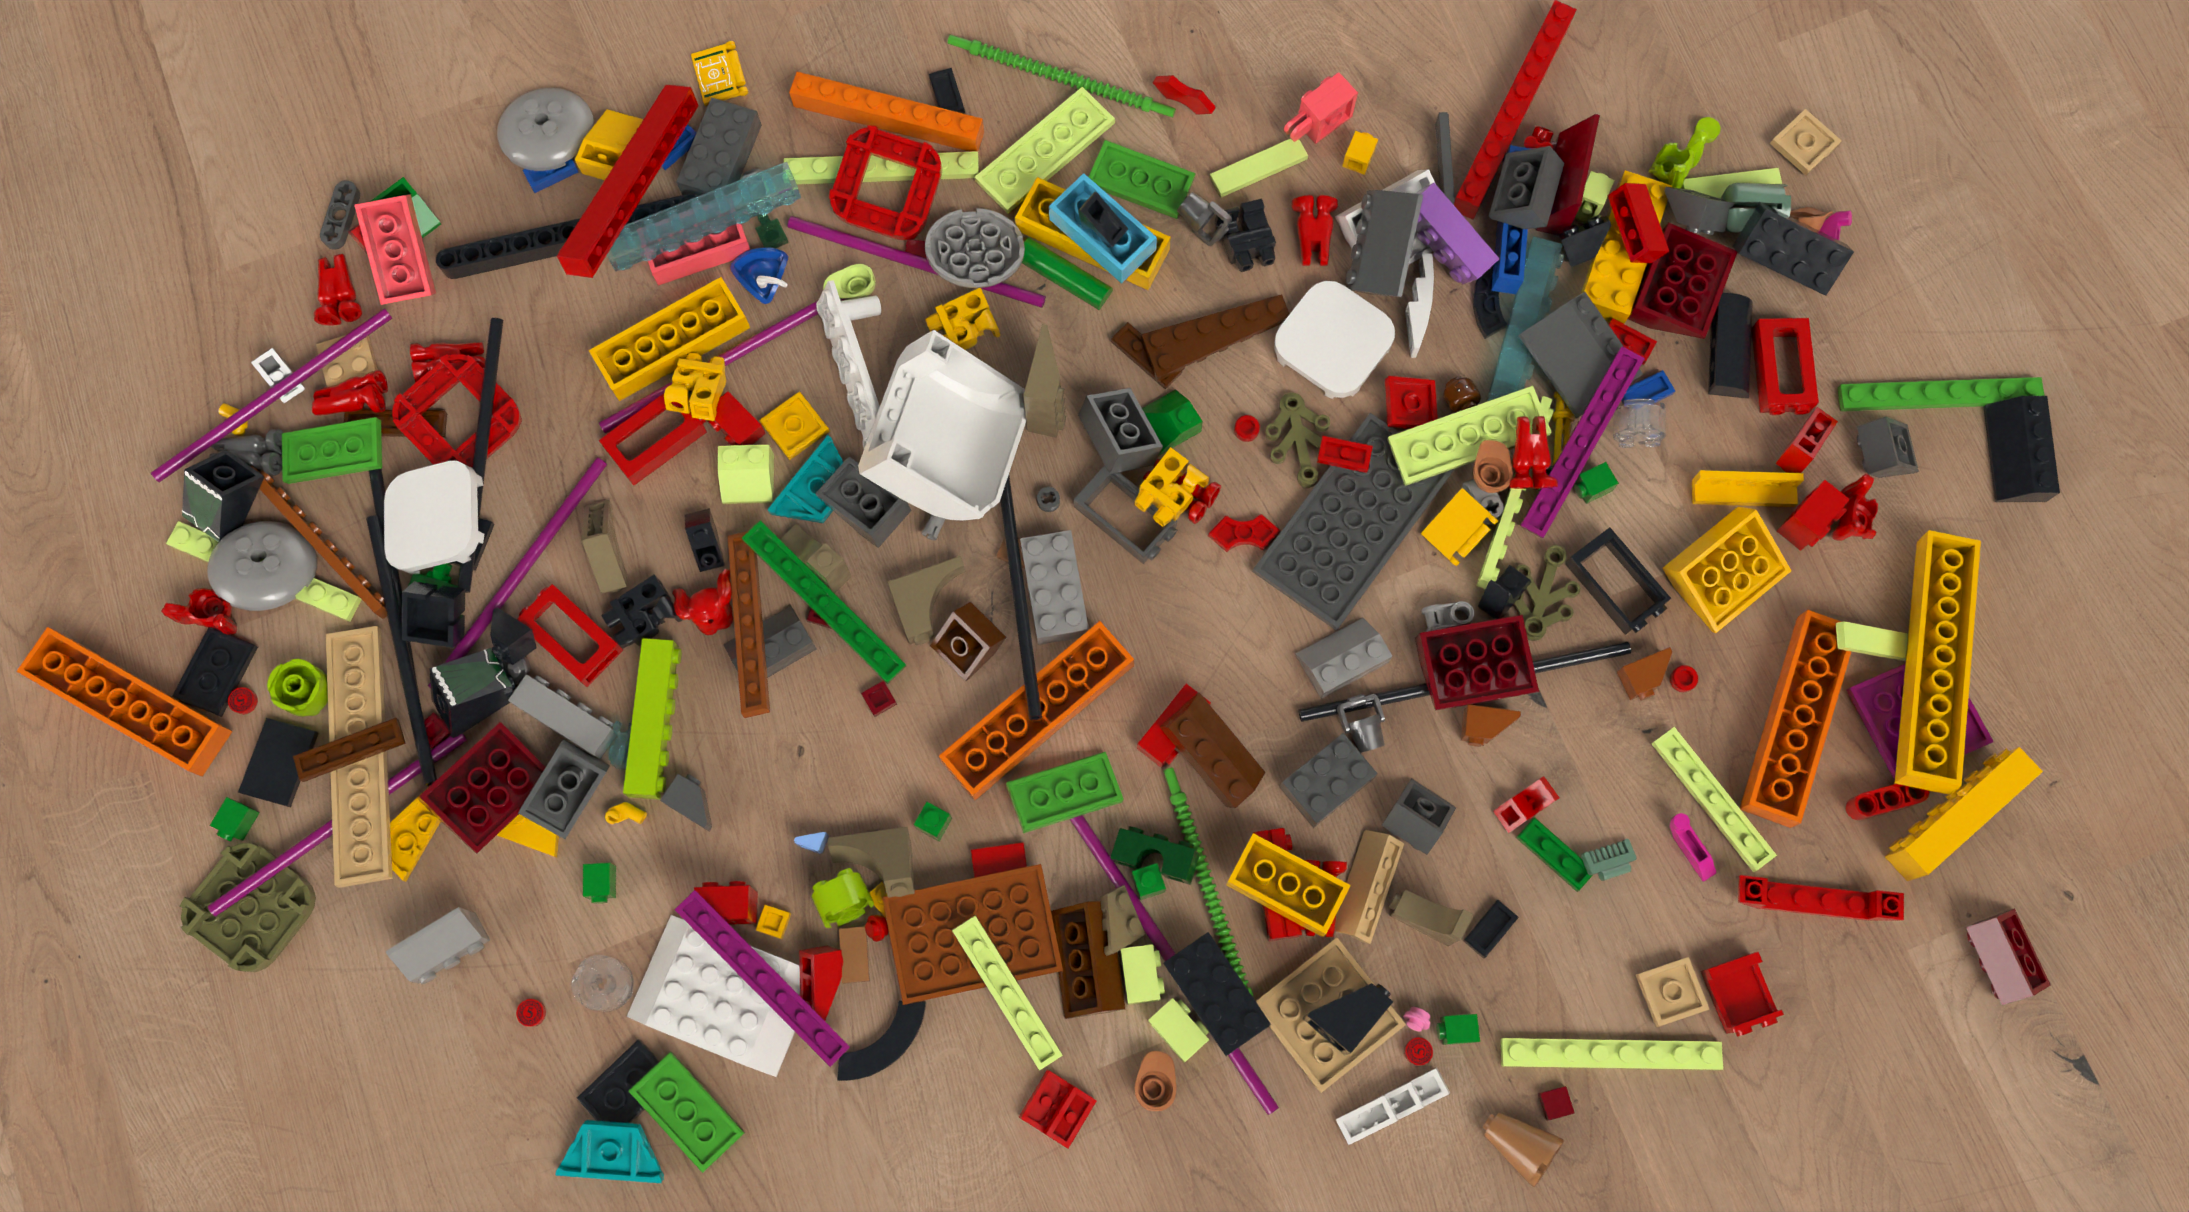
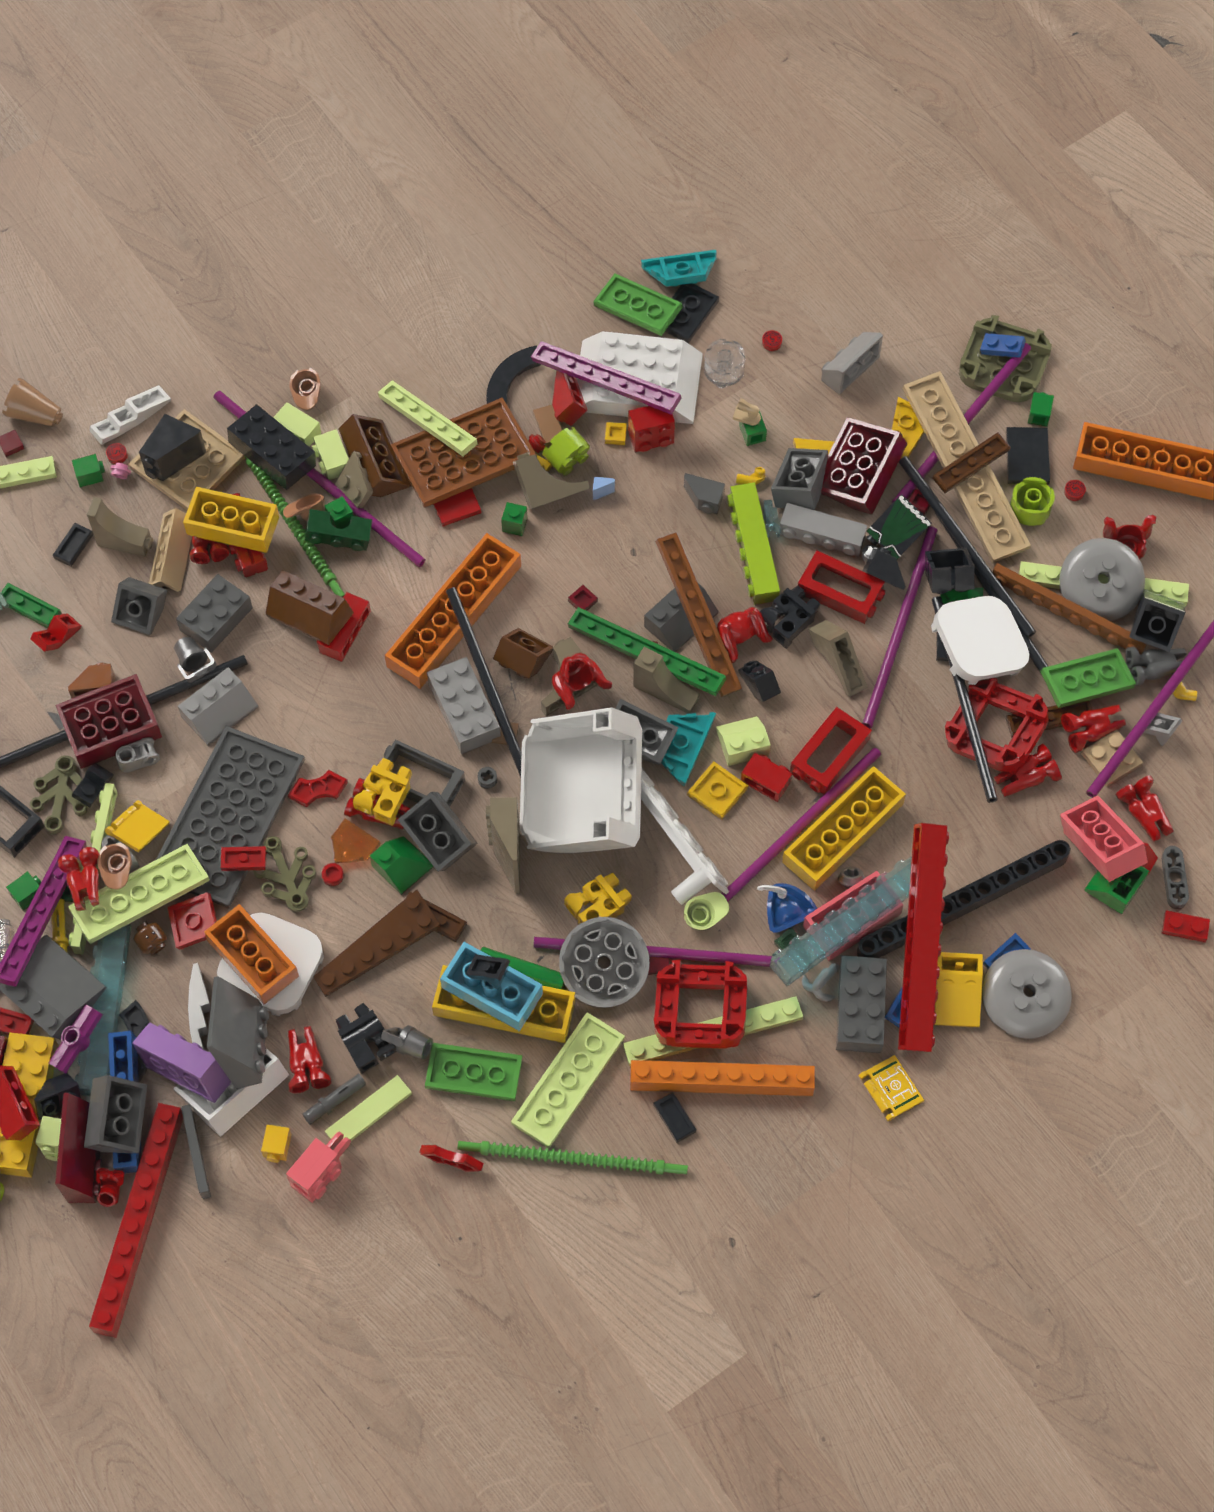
camera: 165 degrees right, 10 degrees down
(215, 671) = (1105, 499): black tile -> none
(241, 917) = (1002, 345): none -> blue plate
(353, 163) = (1185, 926): none -> red plate
(600, 887) = (747, 413): none -> tan piece
(680, 287) = (850, 876): none -> flat silver hat
(704, 381) = (804, 795): yellow hips -> none
(914, 576) = (575, 674): none -> red hair
(1057, 1109) = (373, 363): red slope -> none
(1064, 792) = (418, 560): bright green tile -> none
(1190, 903) = (303, 505): none -> nougat piece
(1217, 457) = (352, 843): none -> clear orange slope
(1293, 184) = (326, 1104): none -> dark grey pin
(1354, 332) = (251, 954): none -> orange brick
(1551, 295) = (82, 1029): none -> magenta piece

